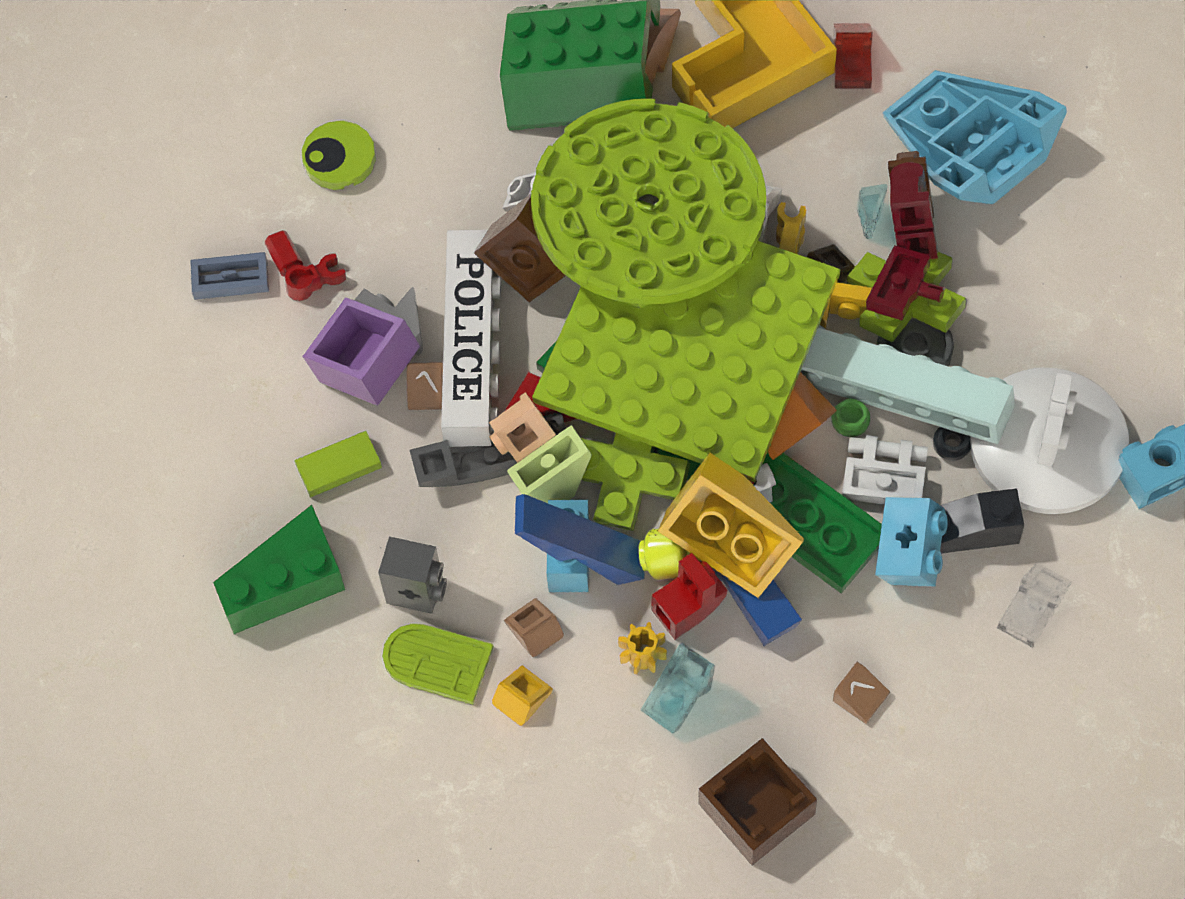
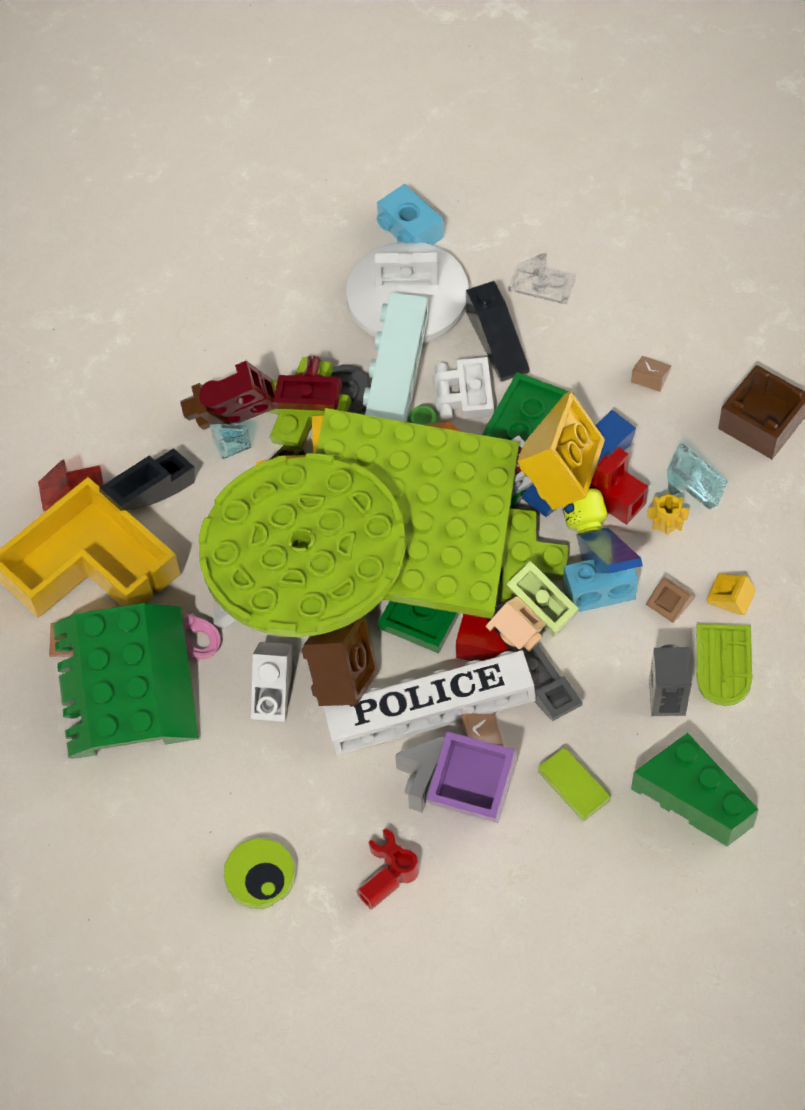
camera: 105 degrees left, 5 degrees down
(229, 282) = (420, 960): sand blue tile -> none
(823, 112) = (149, 481): none -> black slope
(911, 541) = (509, 357): medium azure brick -> none
(949, 452) = (432, 350): black plate -> none
(976, 133) = (139, 383): medium azure wedge -> none

